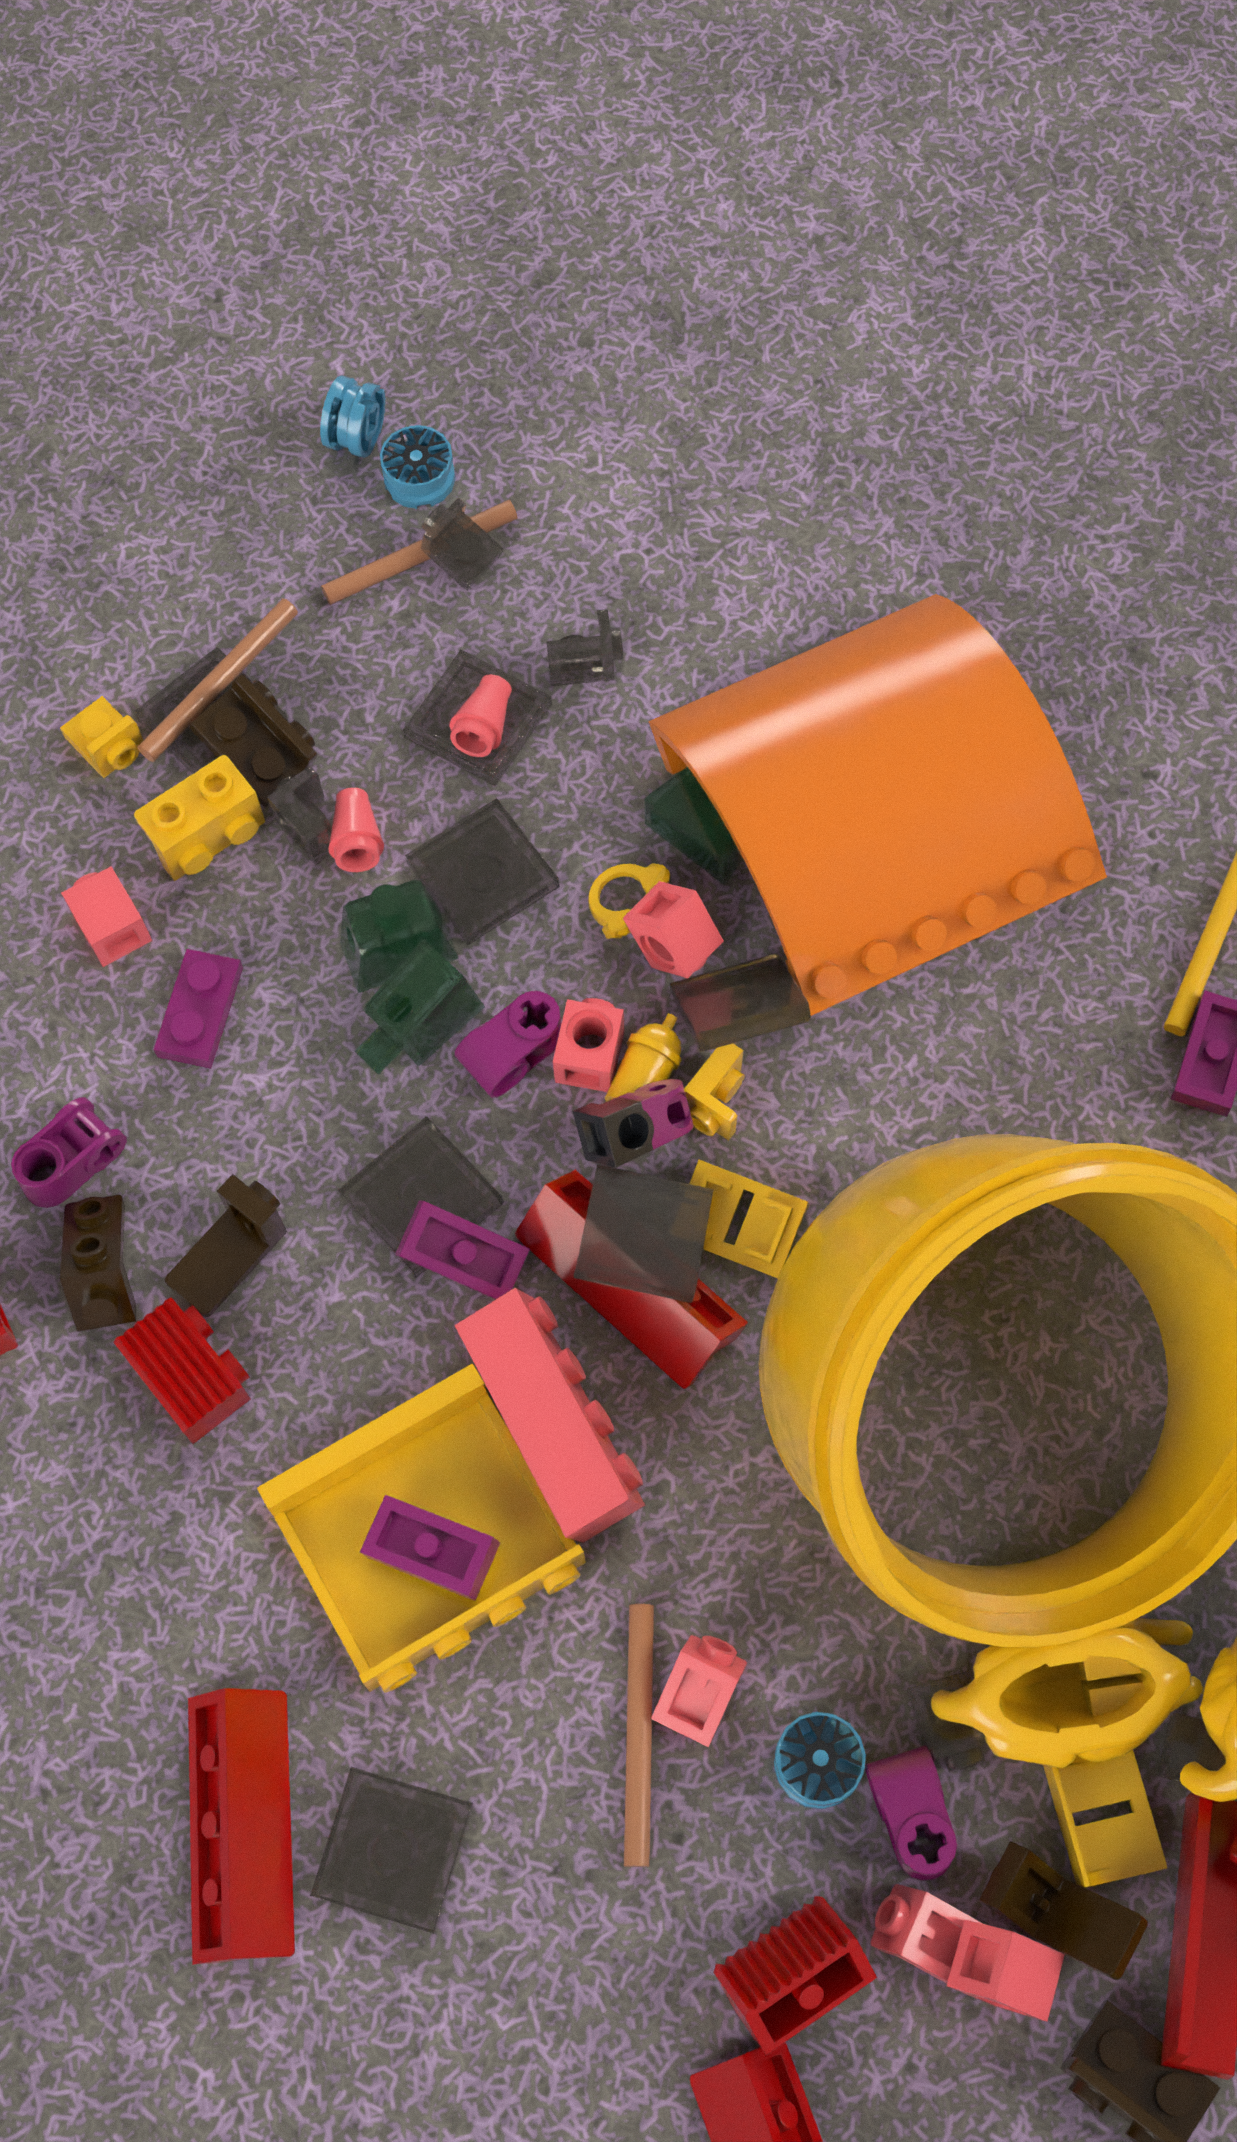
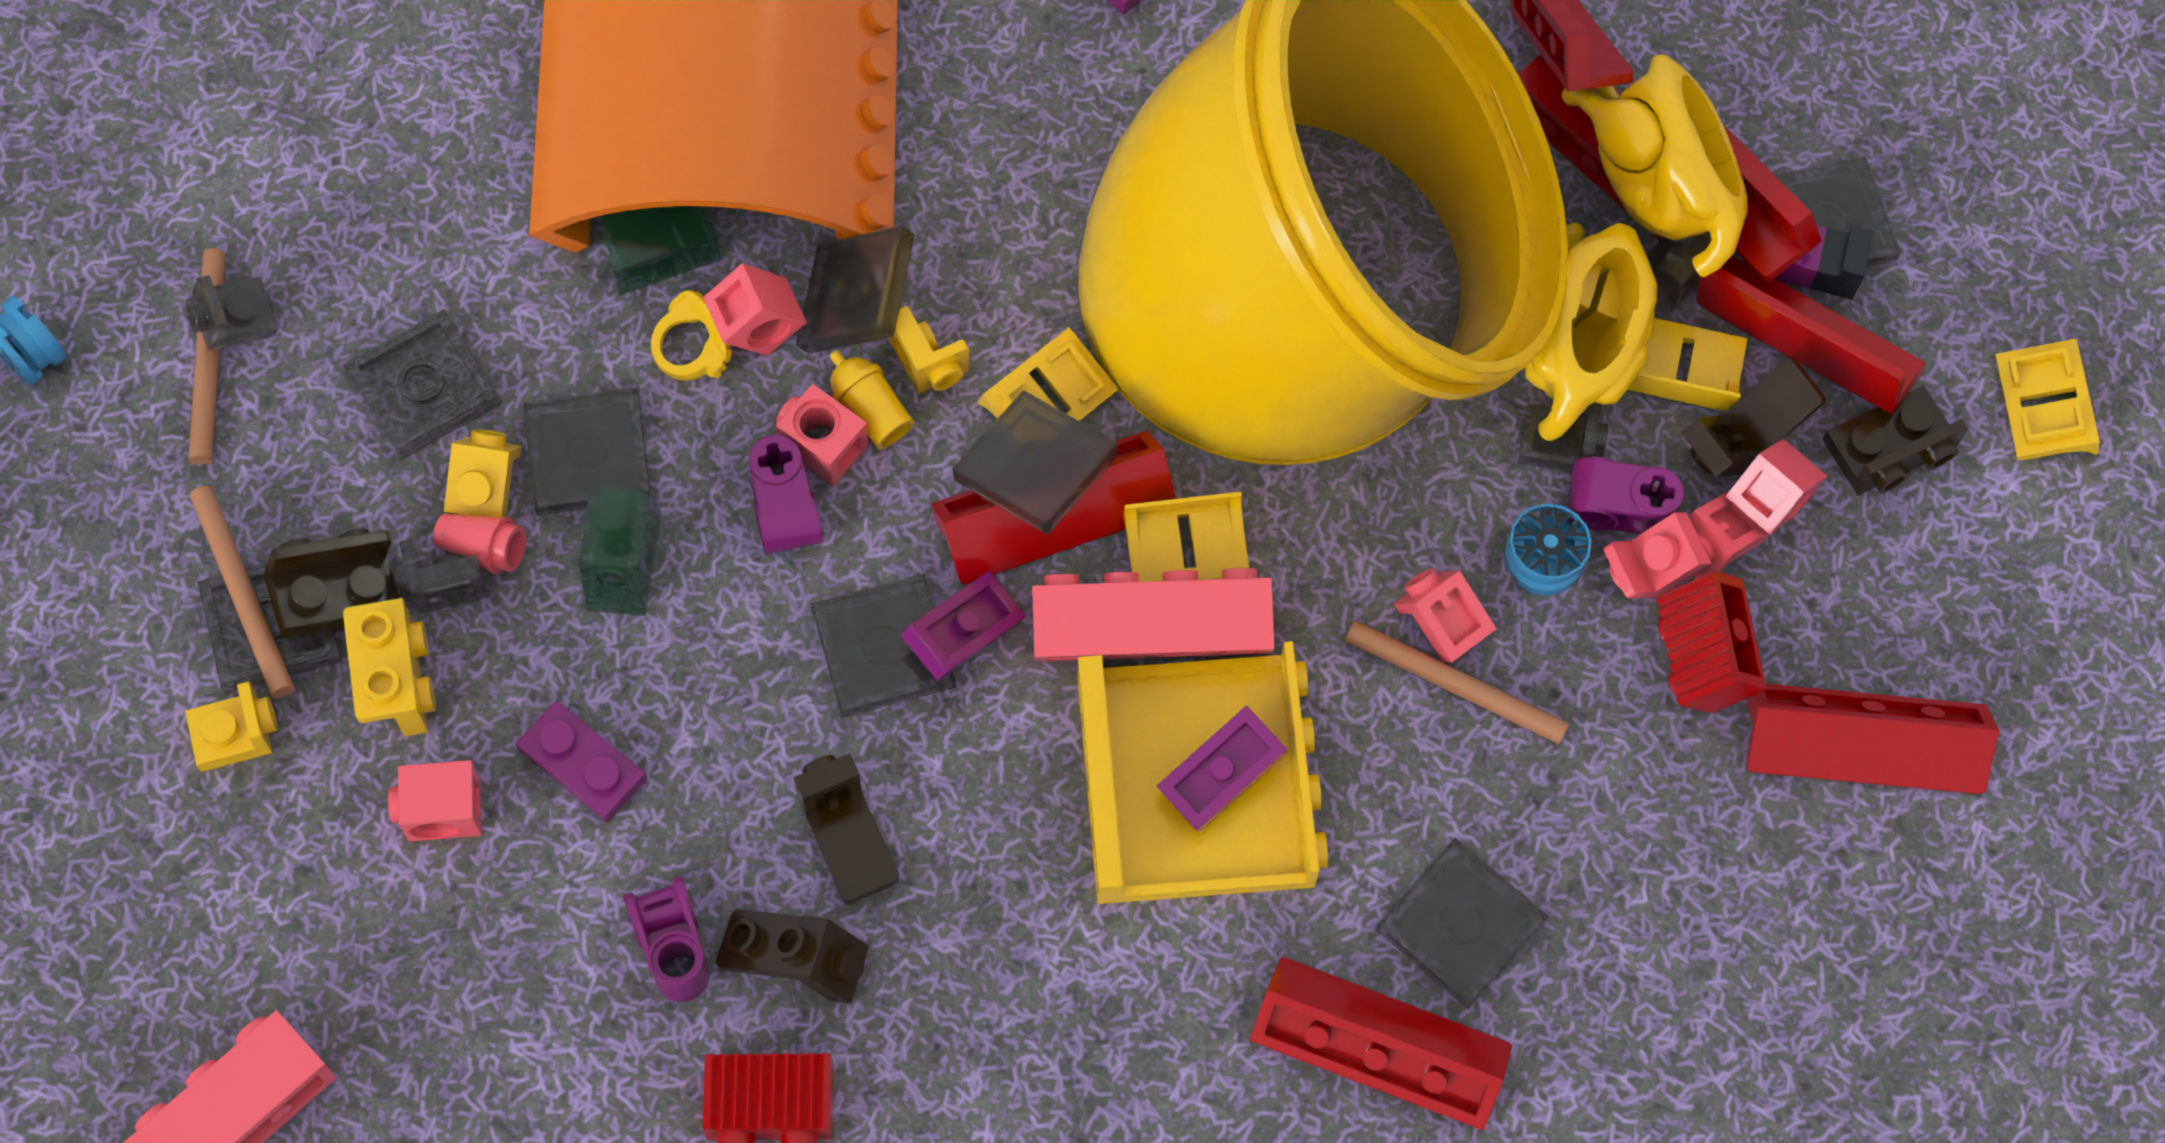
camera: 70 degrees left, 0 degrees up
(183, 1369) = (944, 915): red brick -> none
(414, 799) = (480, 474): none -> yellow bracket
(417, 1009) = (704, 540): clear green torso -> none
(423, 451) = (114, 313): dark azure wheel -> none
(481, 719) = (441, 373): coral cone -> none
(585, 659) = (424, 259): clear smoke bracket -> none
(633, 1123) = (928, 424): black leg -> none
(668, 1435) = (1214, 532): none -> yellow piece
(861, 1875) = (1657, 558): none -> coral bracket

